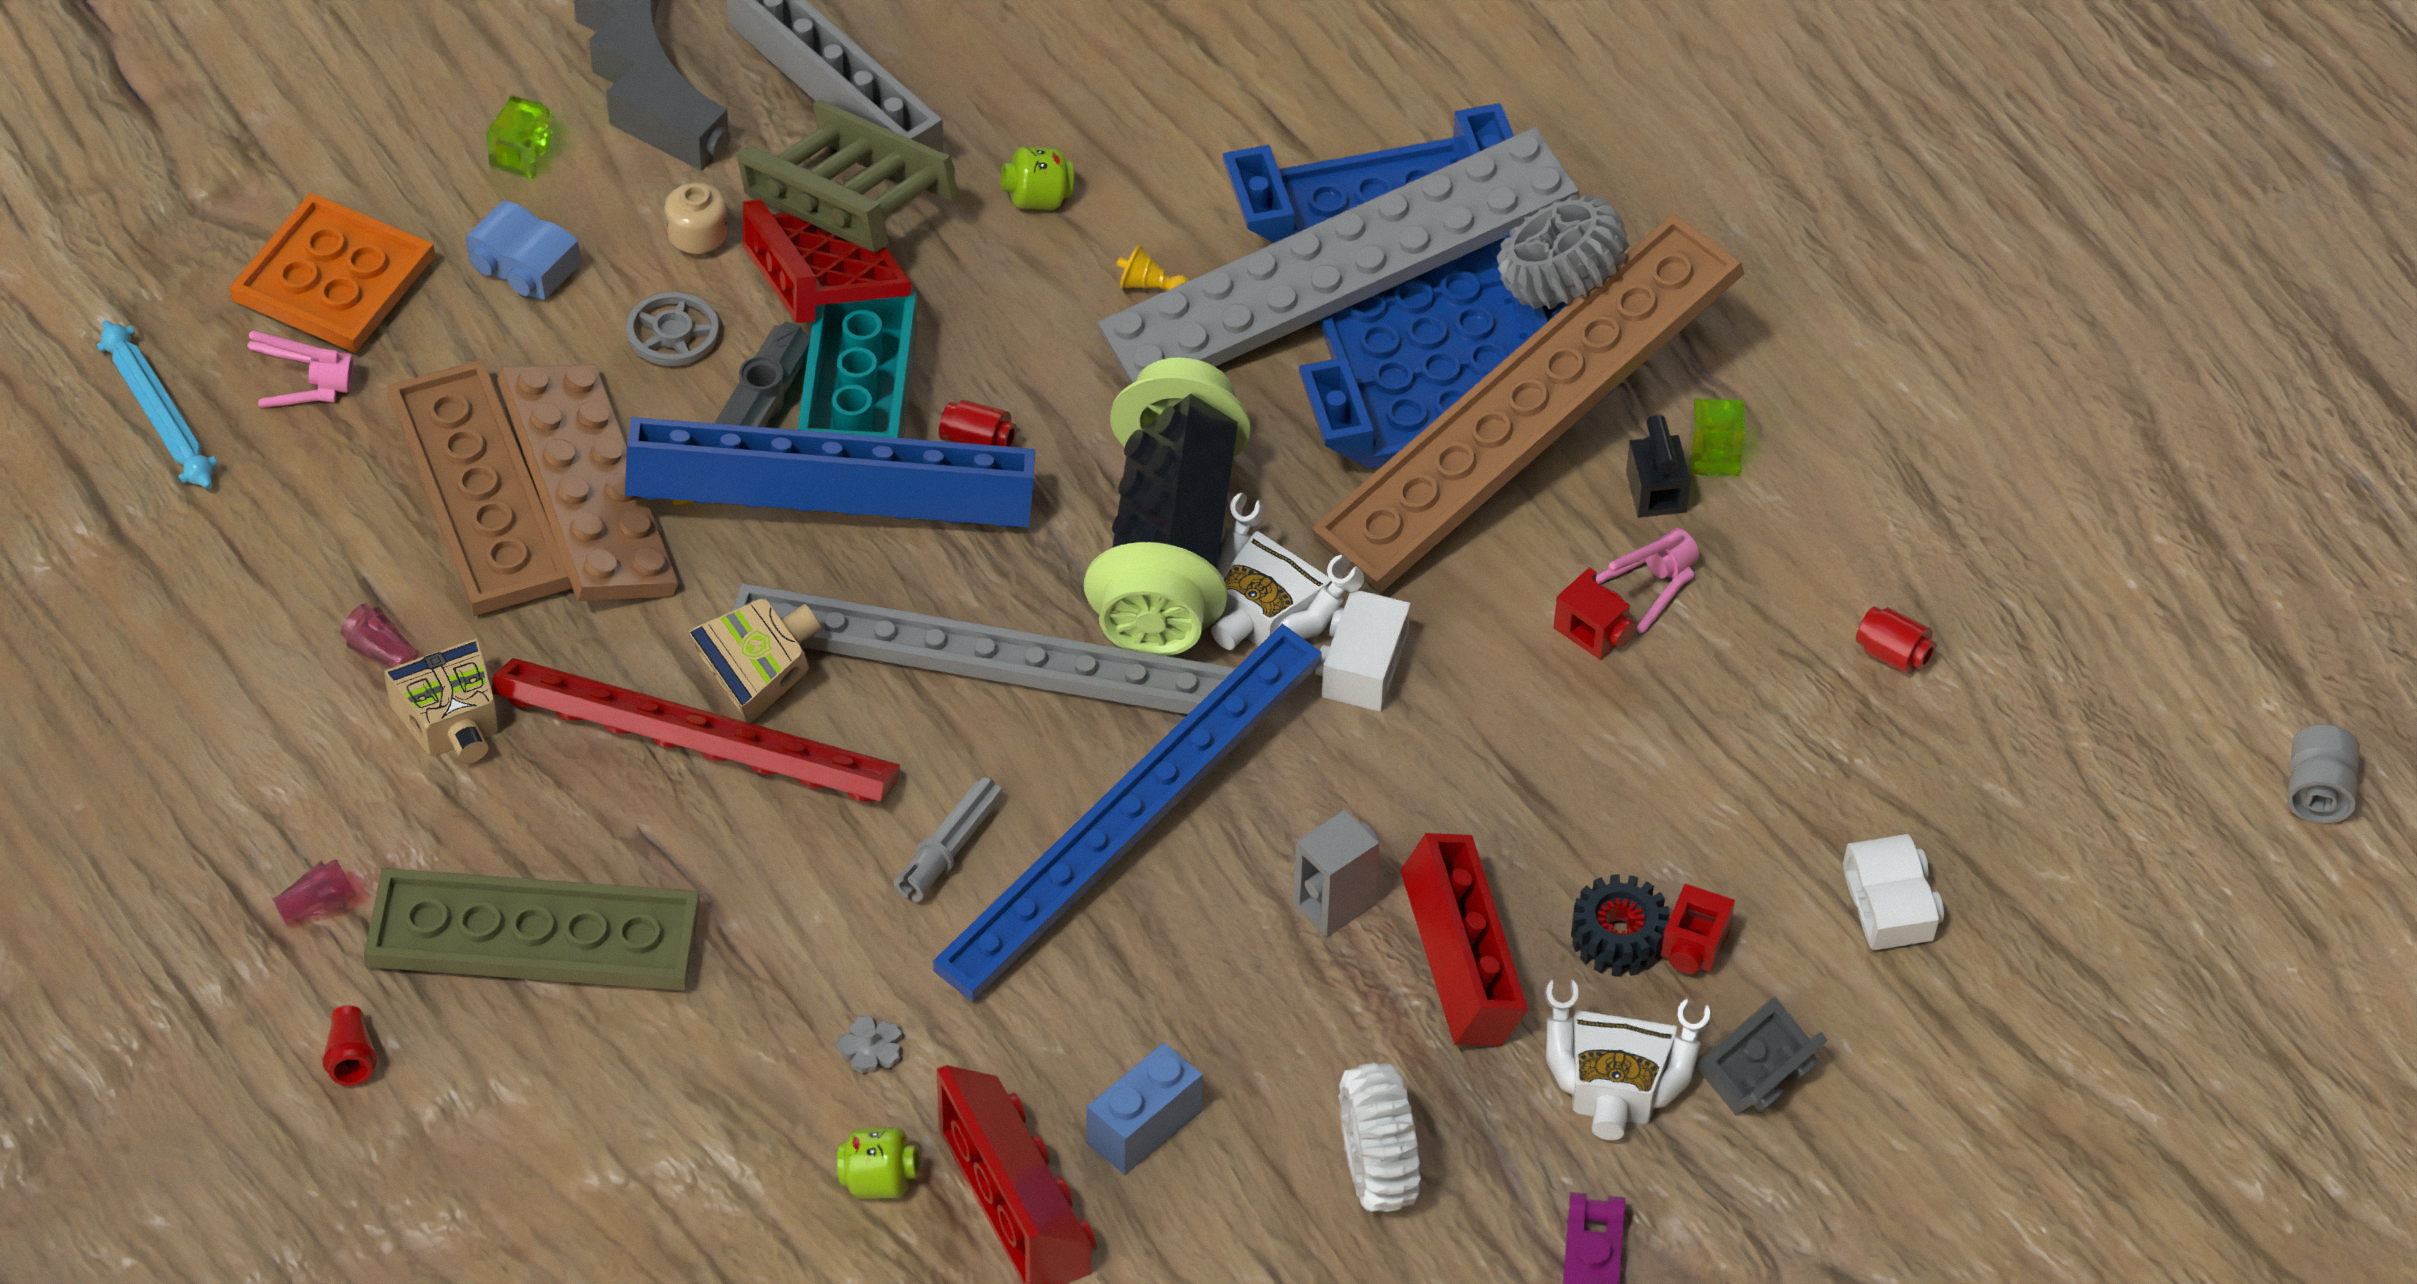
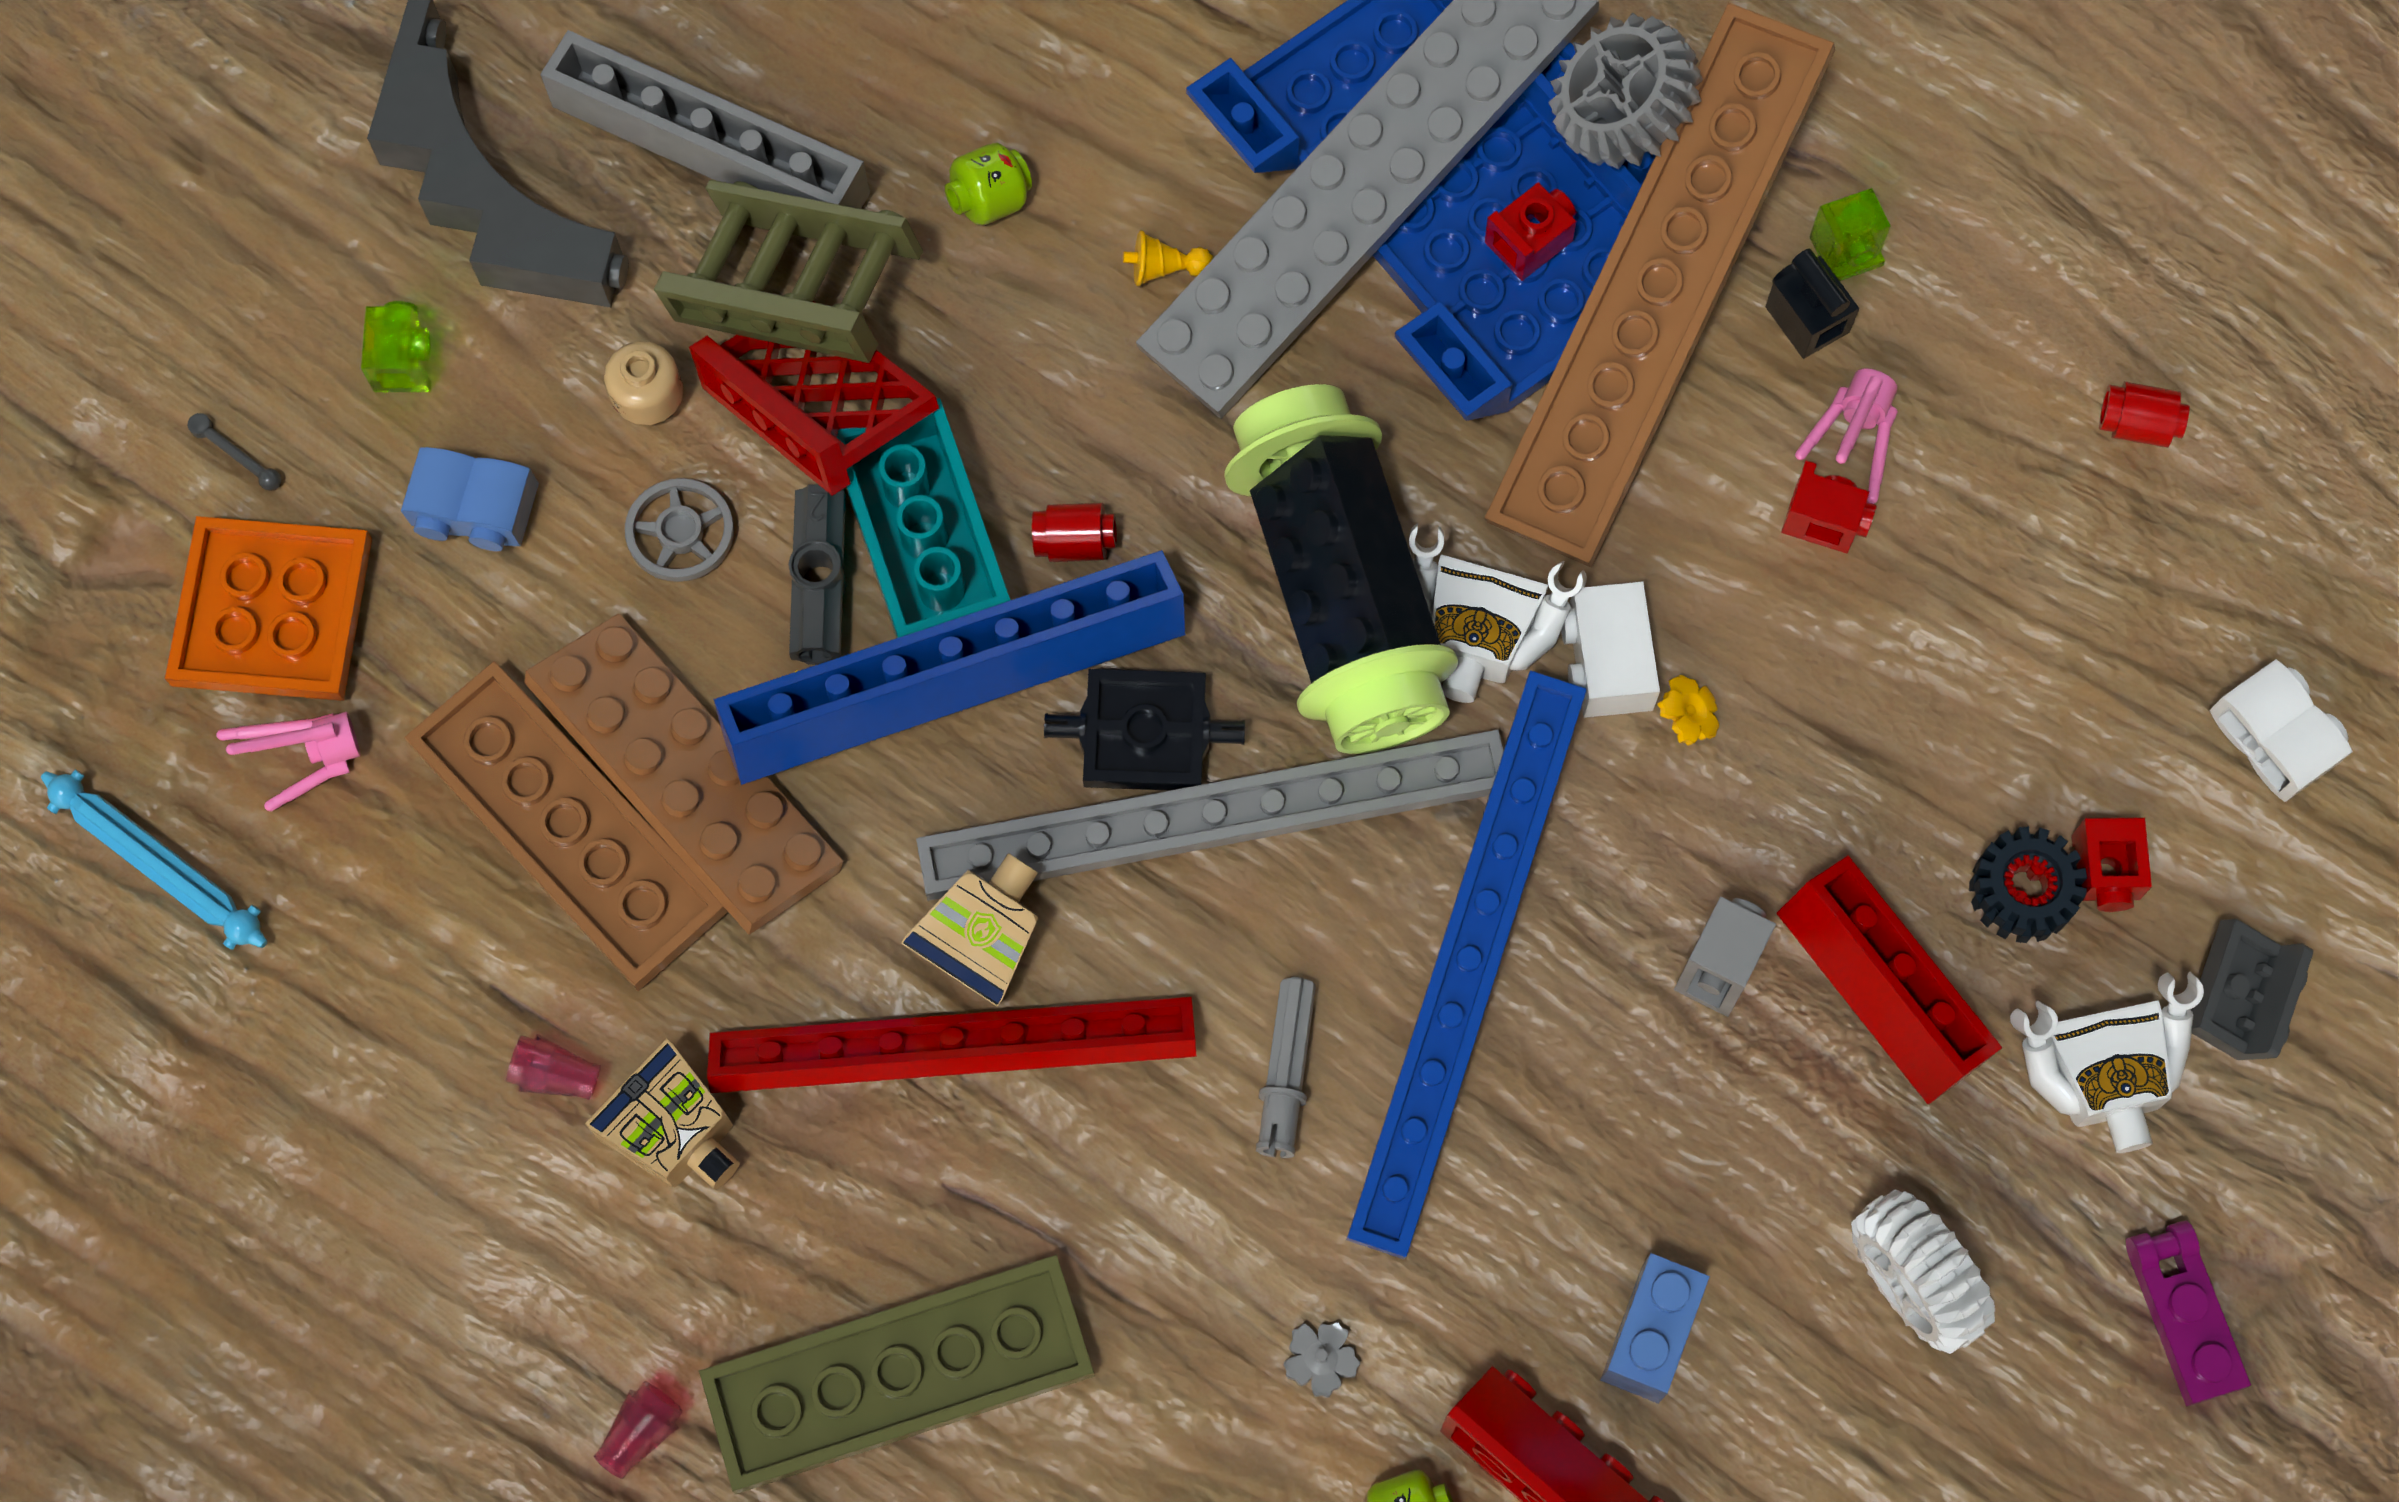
camera: 20 degrees left, 20 degrees up
(347, 144) = (202, 427): none -> dark grey hinge
(960, 575) = (1144, 729): none -> black plate
(1407, 714) = (1690, 710): none -> yellow plant
(1450, 340) = (1529, 245): none -> red brick

